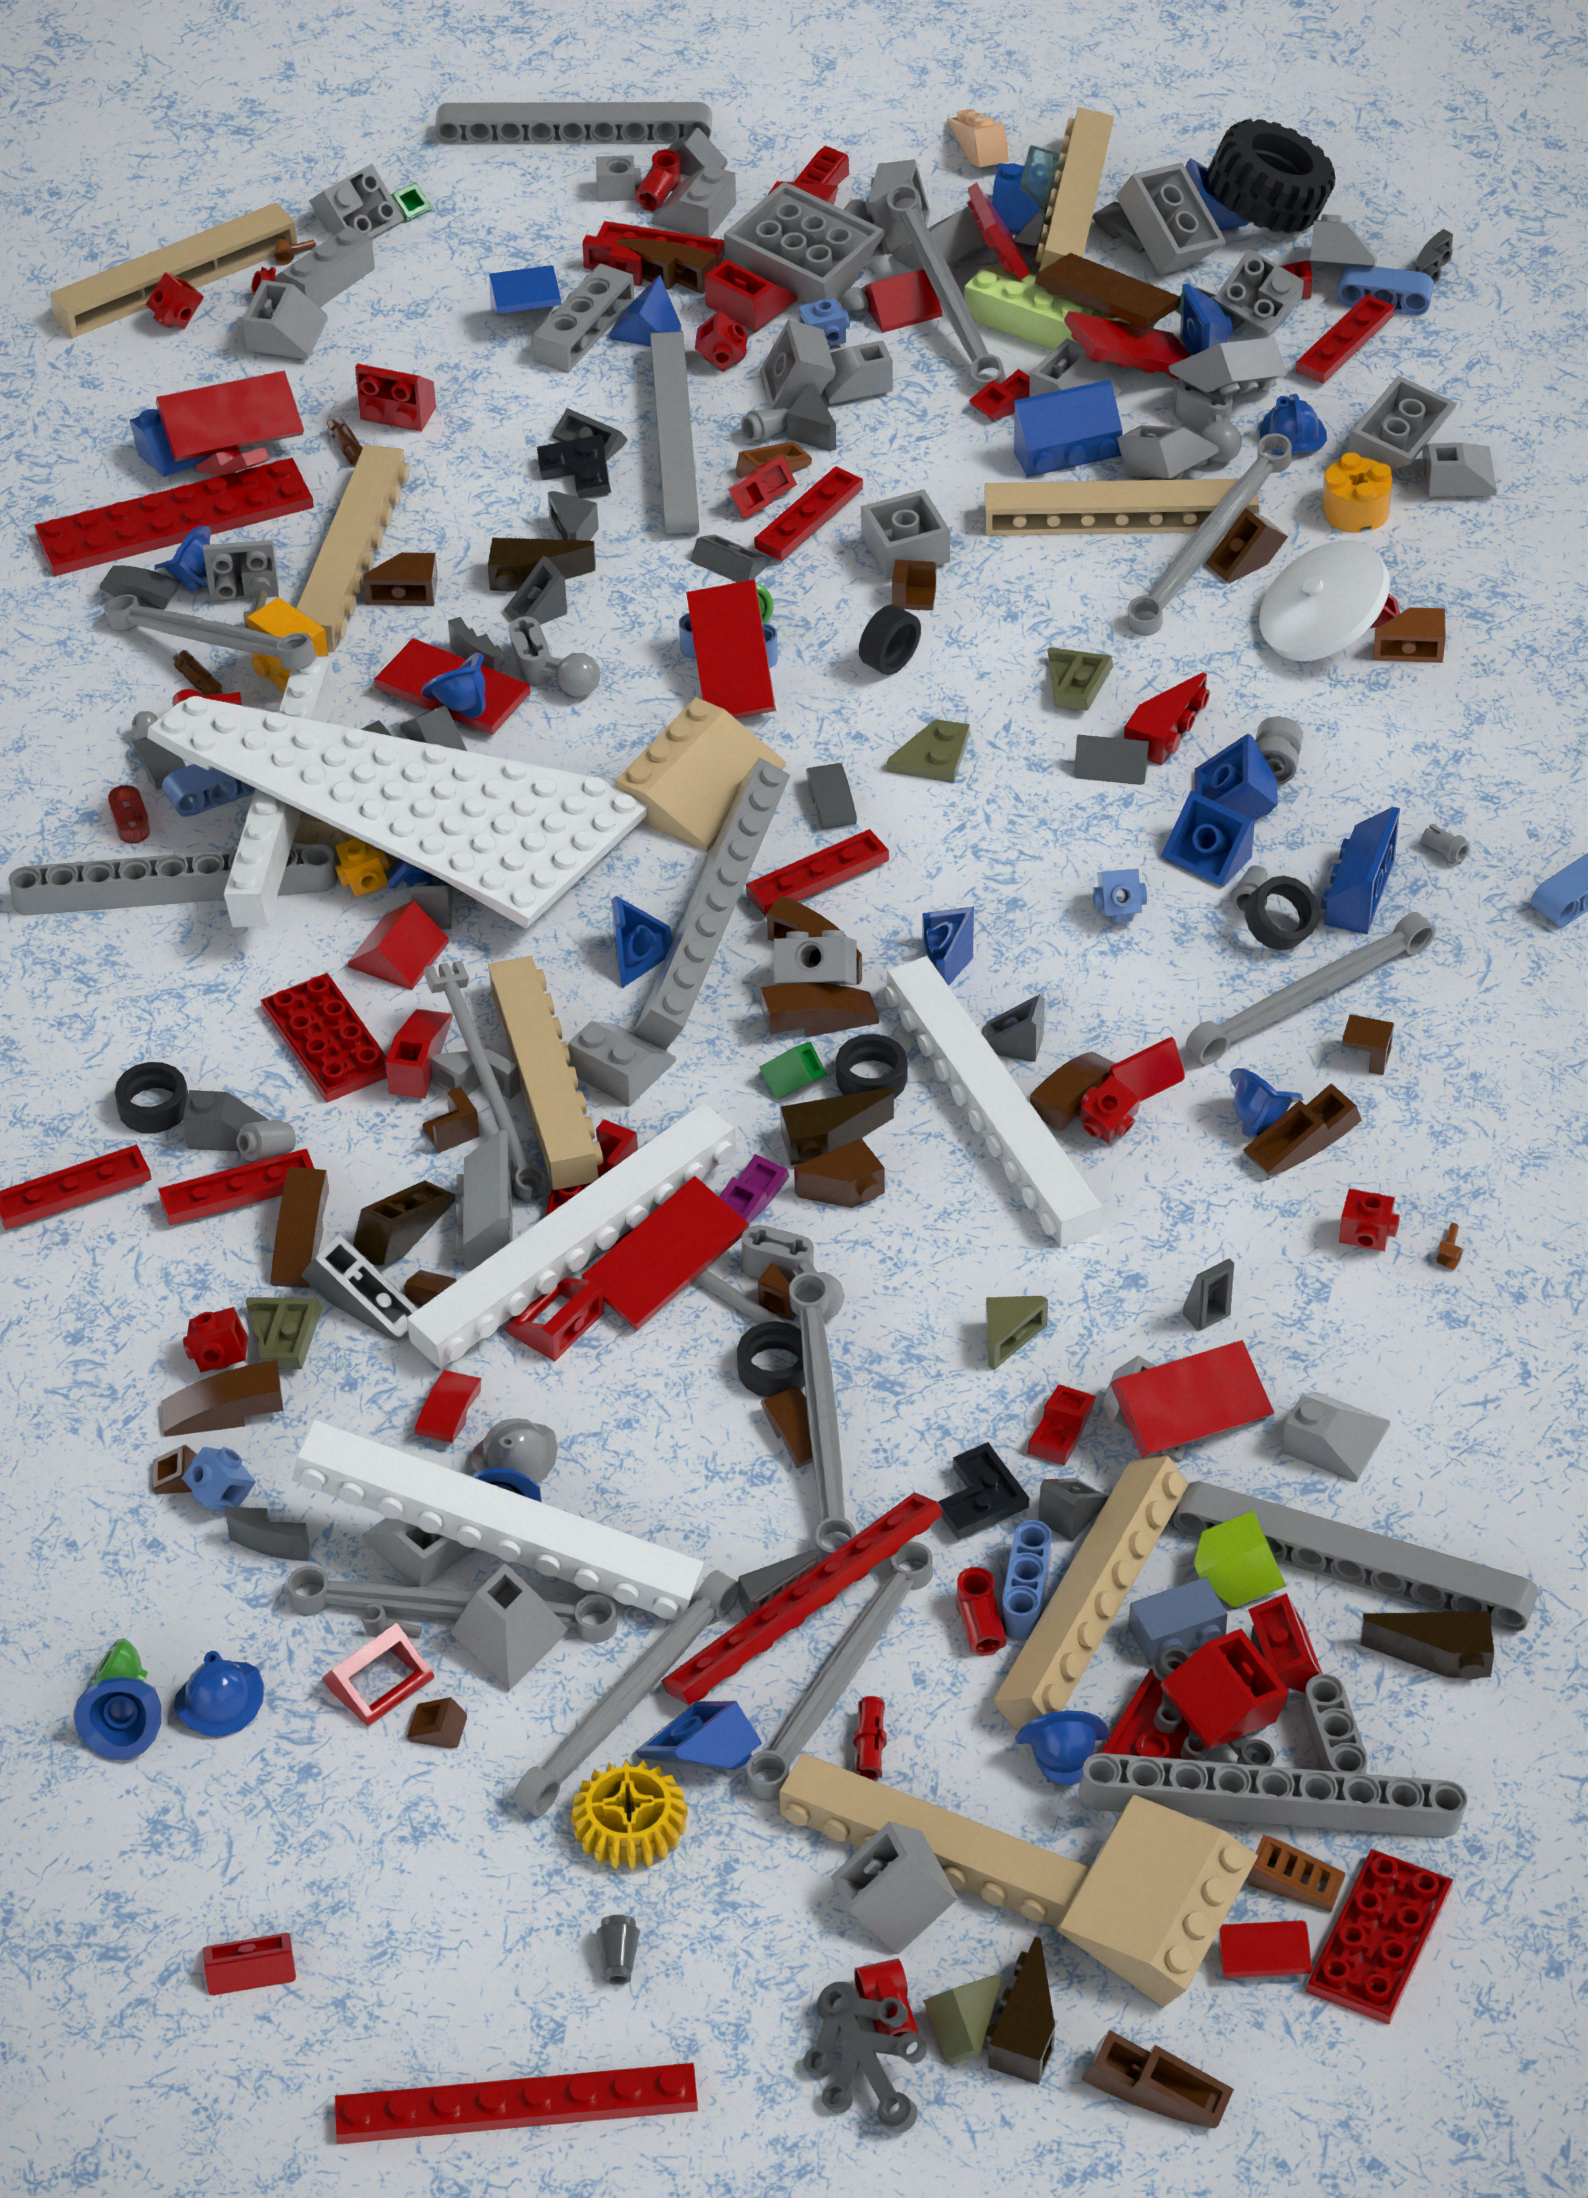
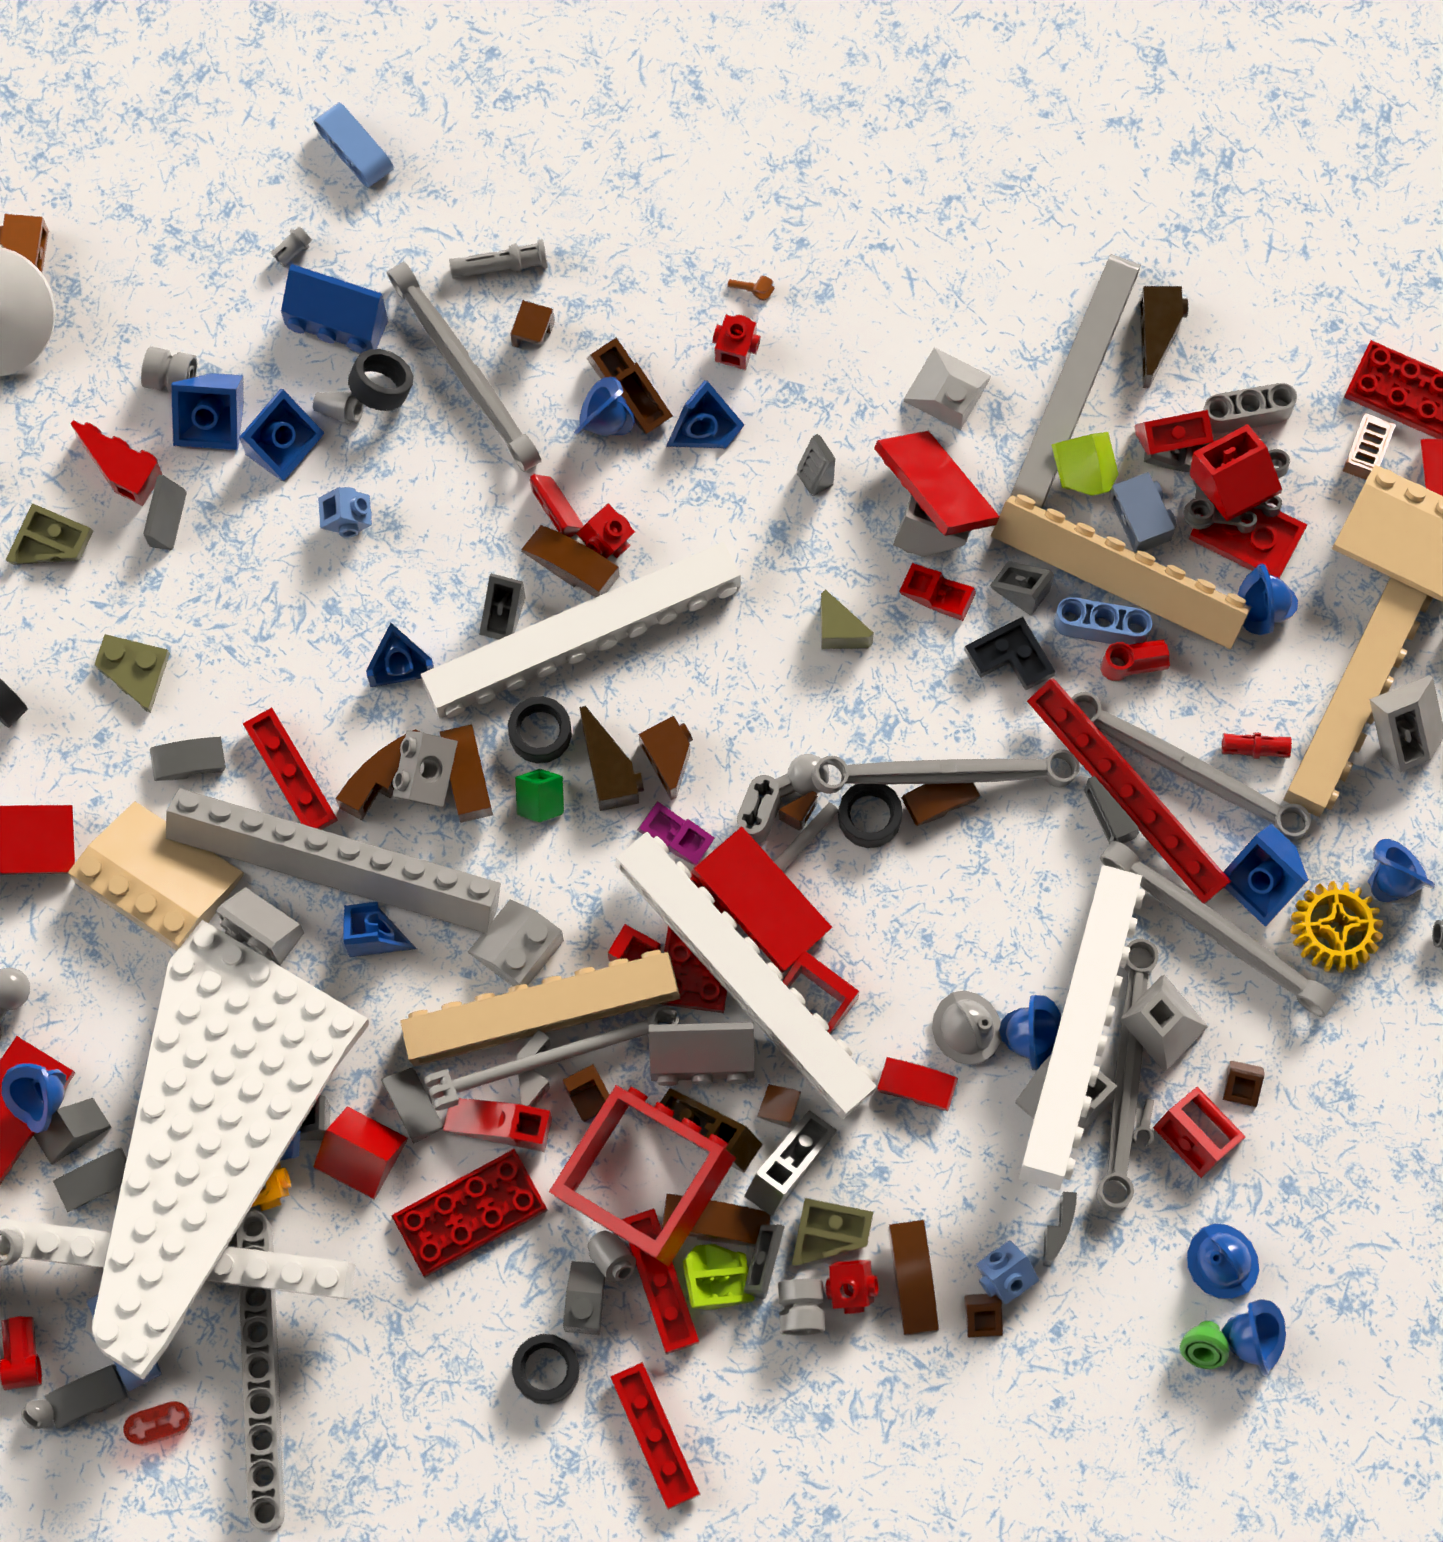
camera: 90 degrees left, 25 degrees up
(189, 1298) = (801, 1307): none -> light grey wheel
(237, 1229) = (716, 1277): none -> lime slope
(250, 1273) = (763, 1260): none -> dark grey slope
(275, 1152) = (692, 1202): none -> red window
(419, 991) = (412, 1104): none -> slope
(640, 846) = (260, 925): none -> light grey slope
(704, 1878) = (1396, 872): none -> blue helmet
(1266, 1199) = (705, 421): none -> blue slope
(1293, 1789) = (1311, 465): light grey beam -> none
(1455, 1027) = (513, 258): none -> light grey pin

